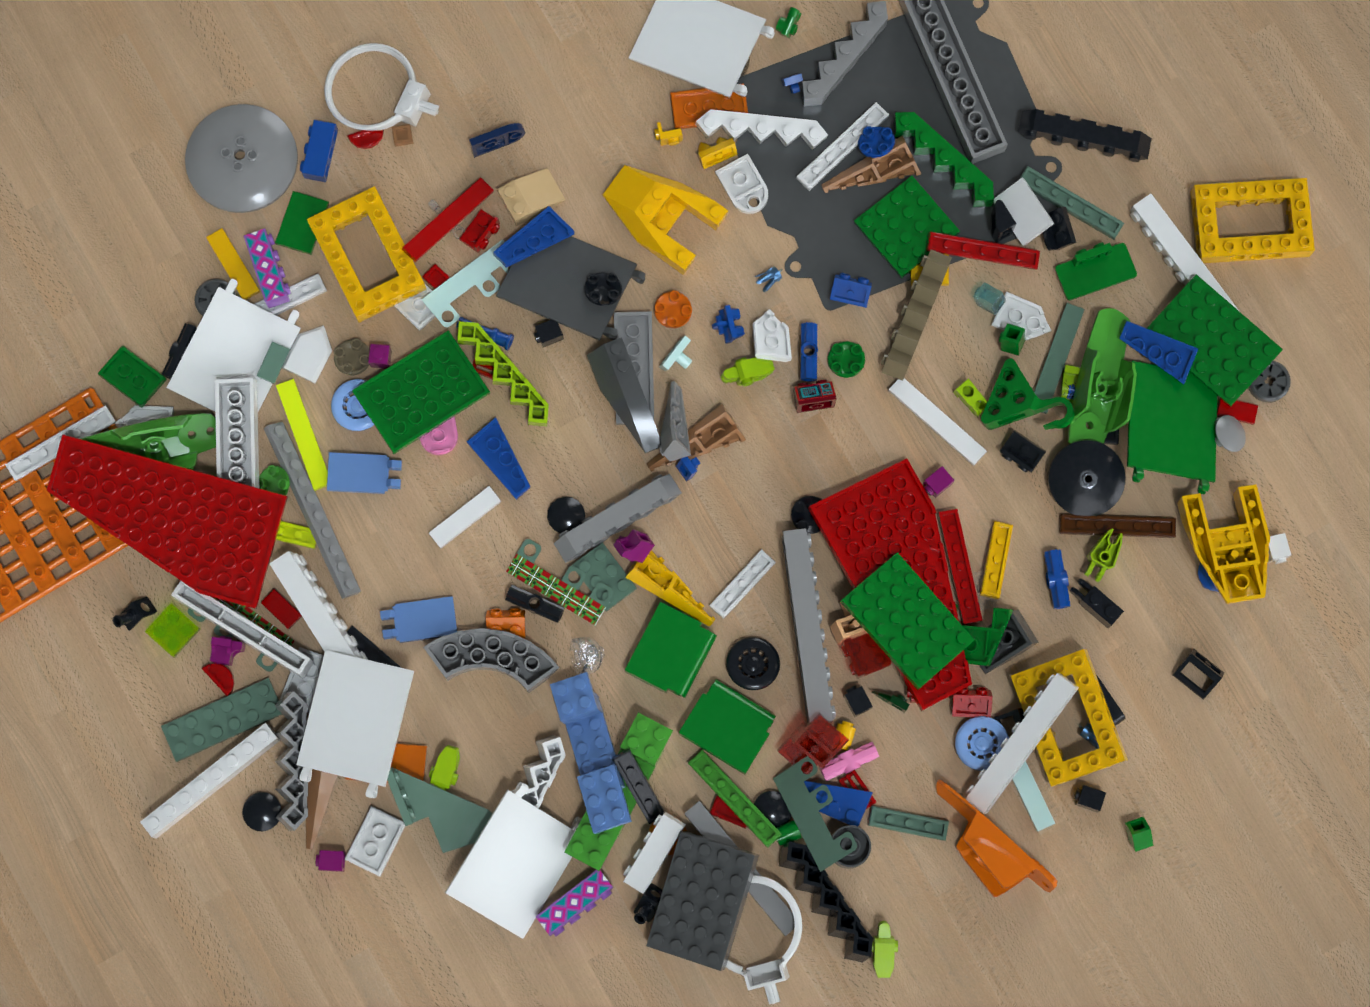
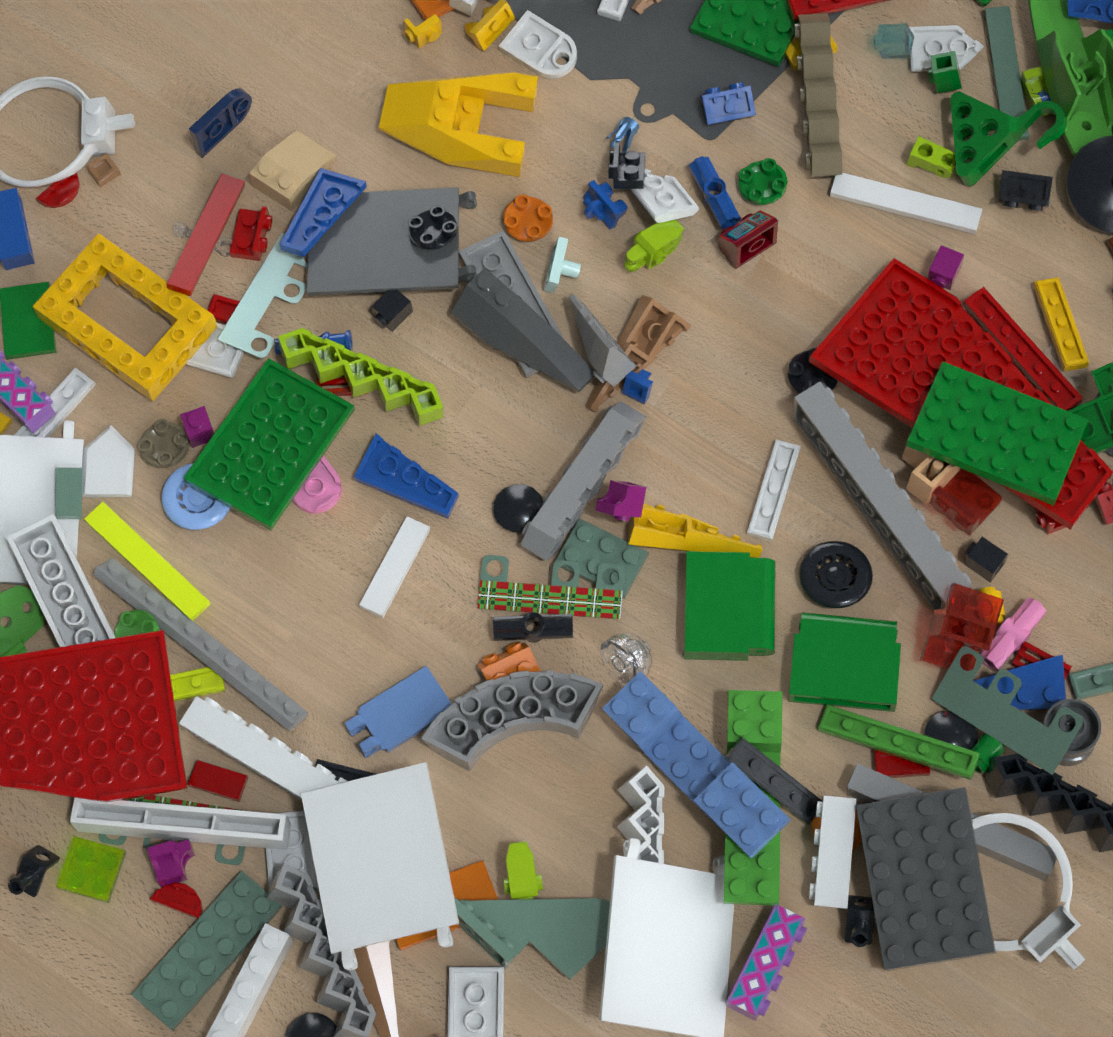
camera: 20 degrees left, 10 degrees down
(361, 473) = (242, 572): medium blue tile -> none
(757, 306) = (626, 168): none -> black bracket
(898, 701) = (1031, 538): dark green plate -> none

